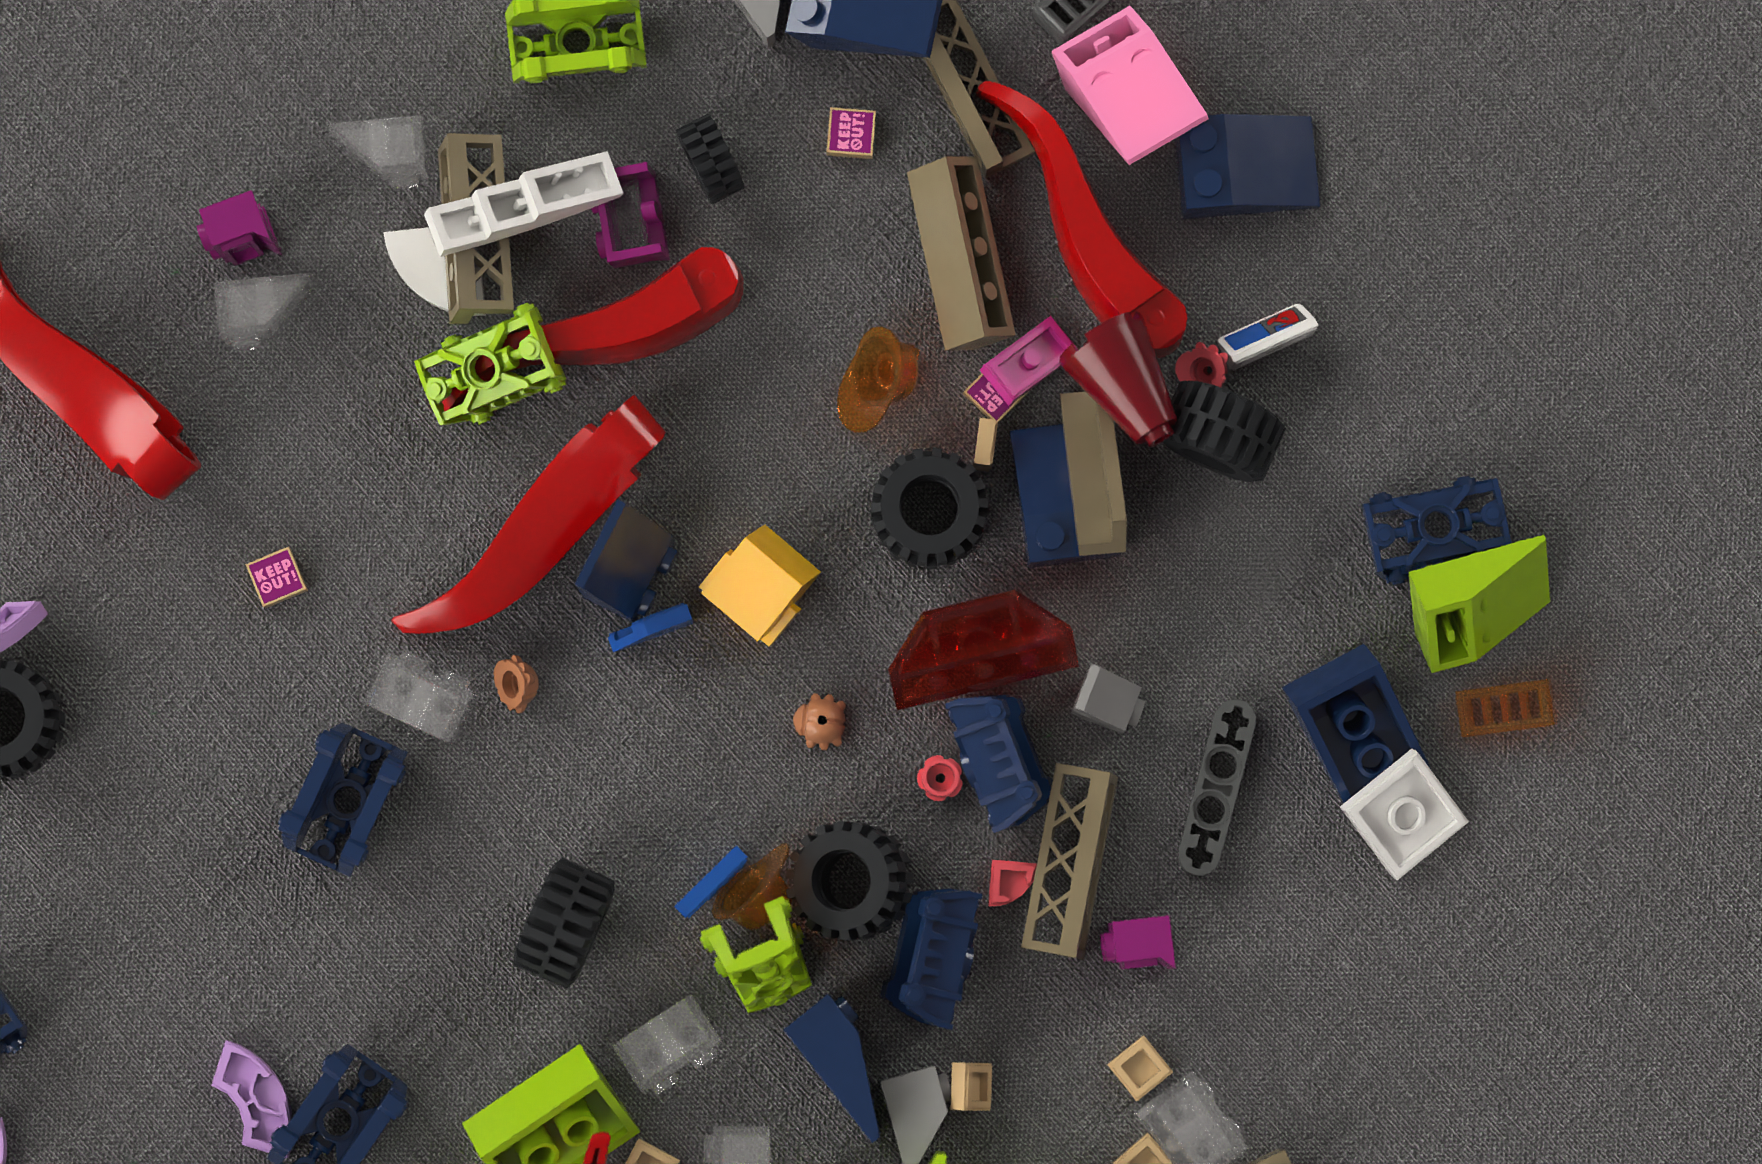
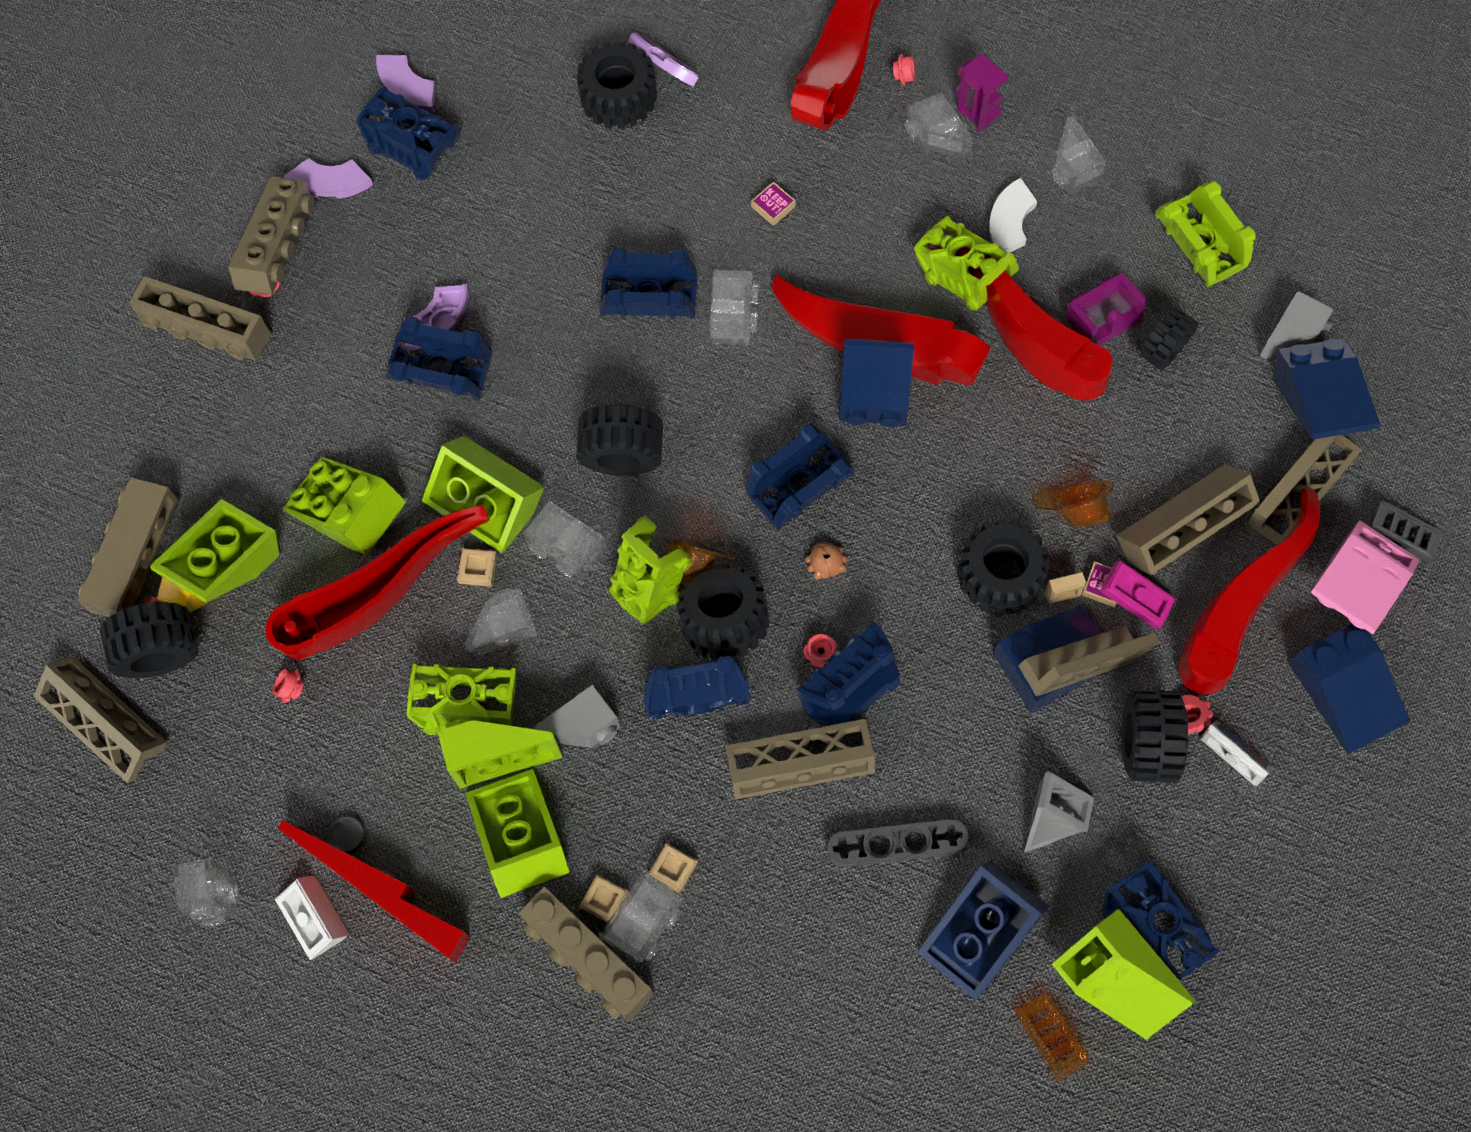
camera: 75 degrees right, 15 degrees down
(143, 311) = (904, 69): none -> coral plate
(460, 265) = (1051, 213): dark tan fence -> none
(515, 683) = (768, 363): nougat animal -> none
(523, 204) = (1080, 237): white slope -> none
(651, 627) = (843, 429): blue tile -> none
(678, 710) = (792, 463): none -> dark blue piece
(712, 882) = (689, 529): blue tile -> none
(760, 584) = (901, 479): yellow plate -> none
(835, 1053) = (596, 652): dark blue slope -> none
(851, 133) = (1232, 425): tile -> none
(971, 1086) = (613, 752): tan tile -> none
(979, 648) = (922, 630): clear red wedge -> none
(1009, 881) = (767, 723): coral tile -> none
(1108, 700) = (925, 734): light grey slope -> none
(1124, 377) = (1161, 642): dark red cone -> none
(1139, 943) = (761, 824): magenta window -> none
(1257, 583) = (1057, 812): none -> light grey slope
(1404, 814) = (938, 987): white plate -> none

